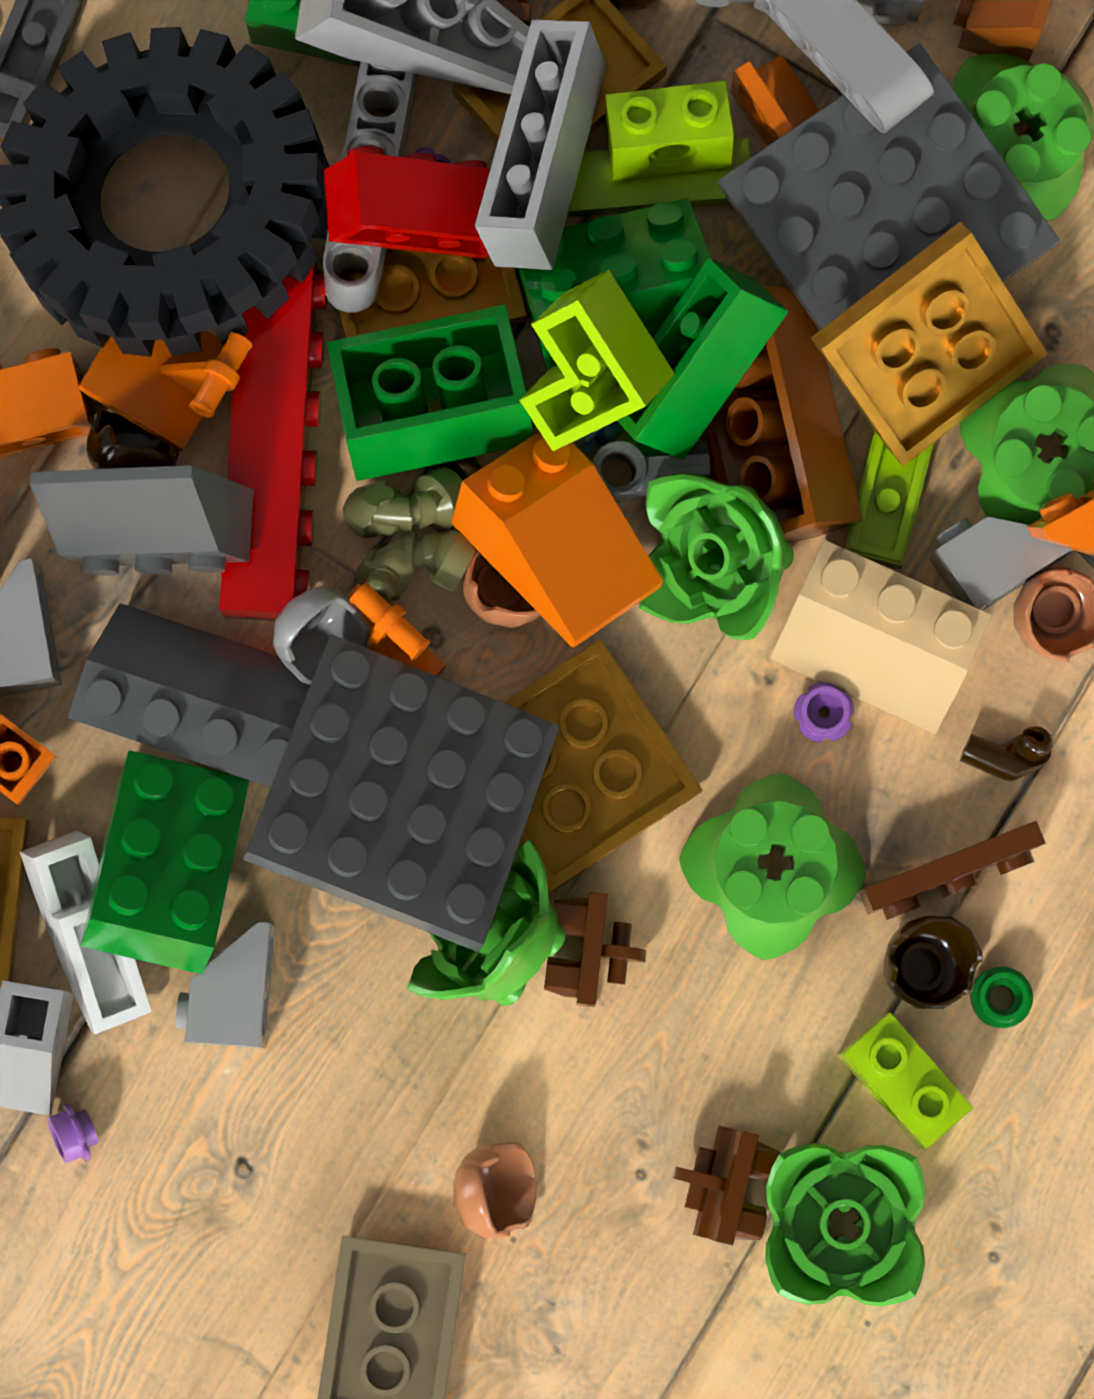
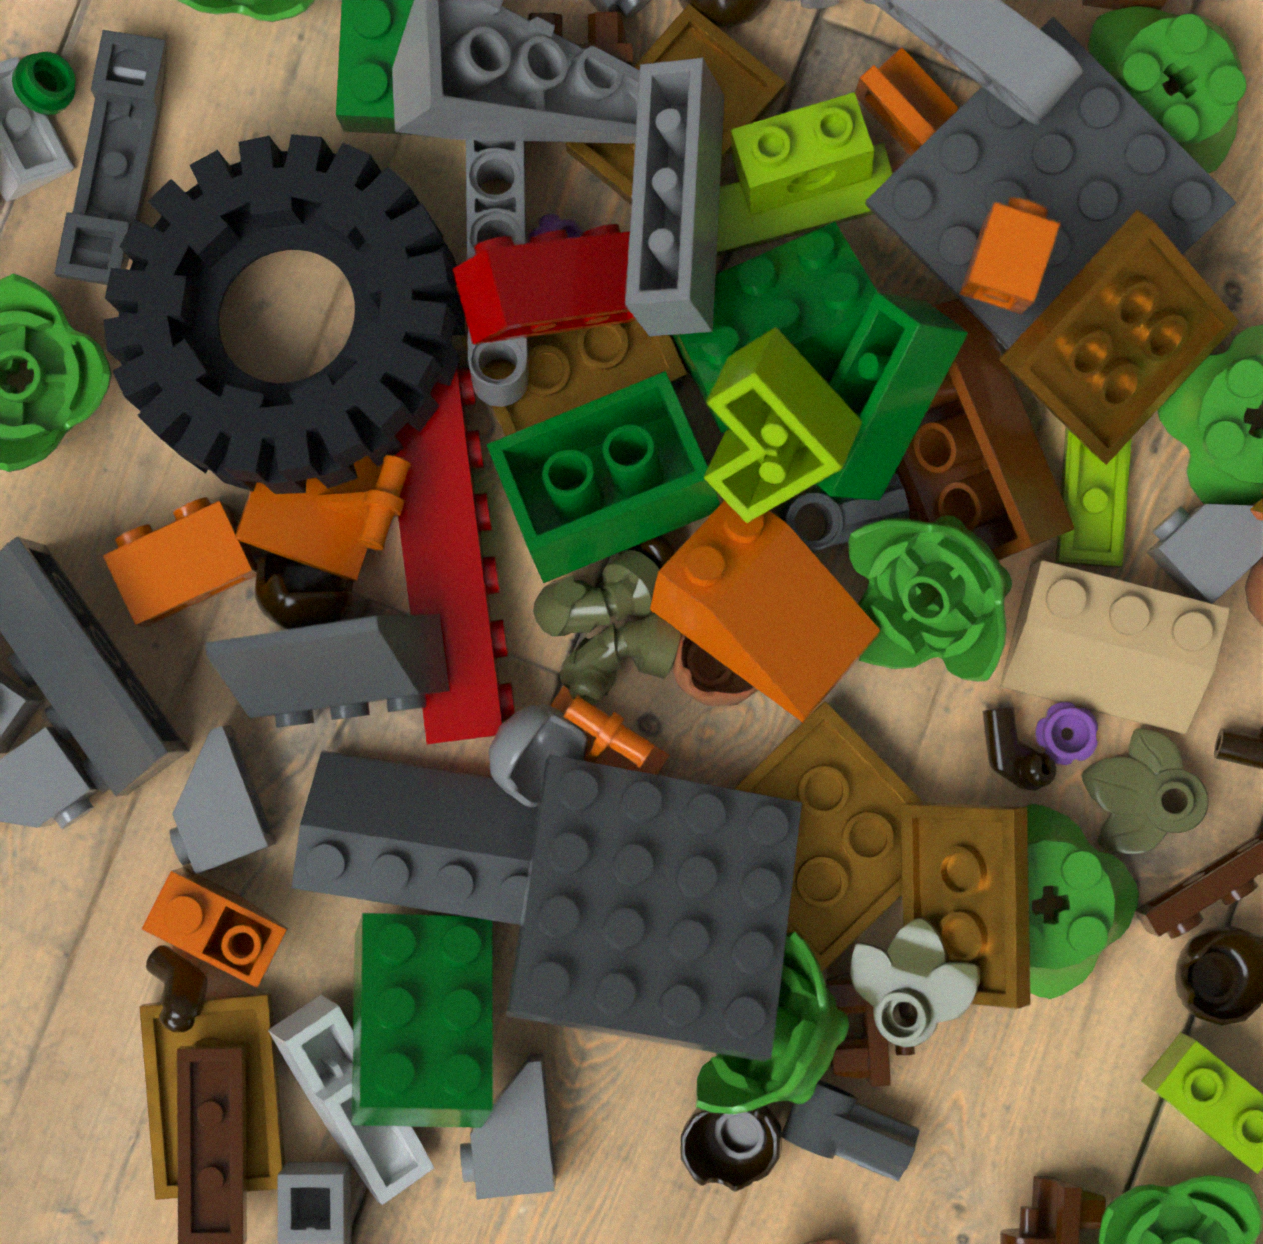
camera: 10 degrees left, 5 degrees up
(435, 1036) = (731, 1147): none -> dark brown hair
(540, 1039) = (840, 1126): none -> dark grey piece
(632, 899) = (914, 973): none -> plate
(695, 843) = (971, 882): none -> pearl gold plate
(767, 725) = (1012, 757): none -> dark brown arm
(835, 244) = (1010, 255): none -> orange brick
(878, 778) = (1135, 794): none -> olive plate

